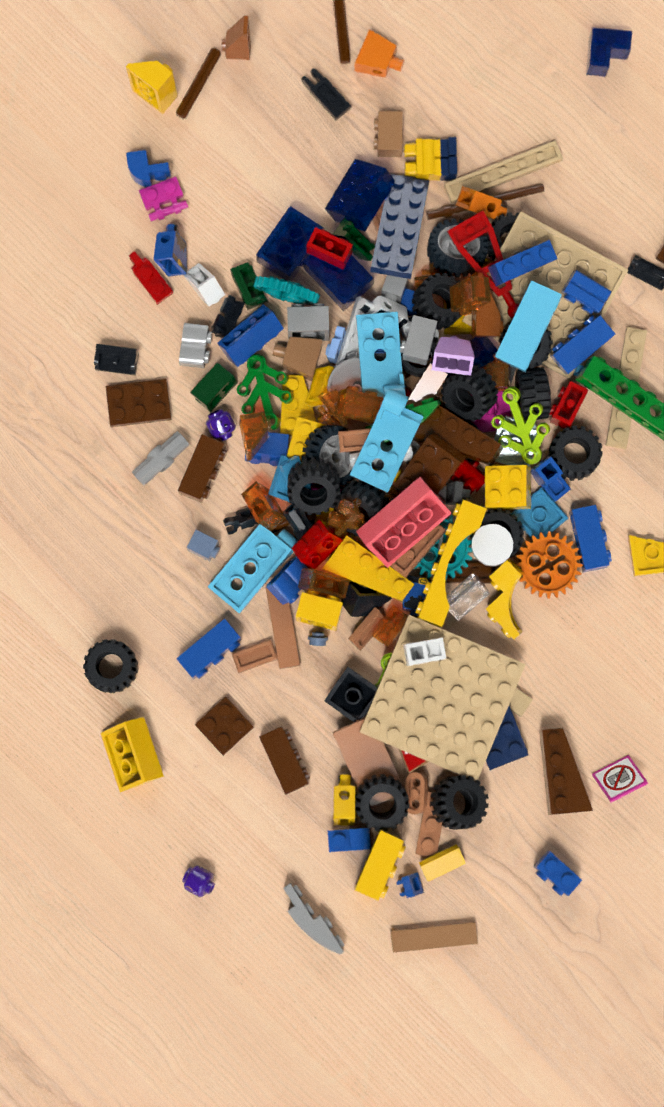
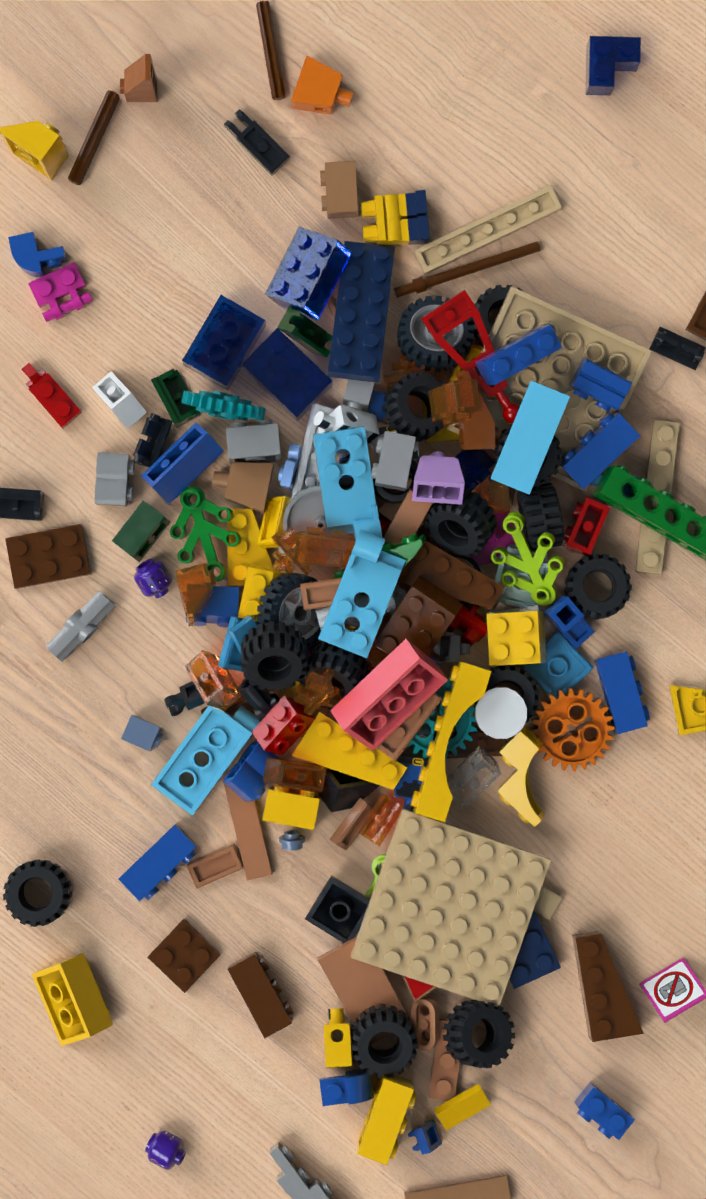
camera: 10 degrees left, 5 degrees up
(171, 251) = (74, 361): blue torso -> none
(202, 469) = (134, 636): reddish brown brick -> none
(329, 248) = (274, 349): red brick -> none
(424, 651) = (423, 857): white brick -> none
(477, 202) = (461, 275): orange torso -> none

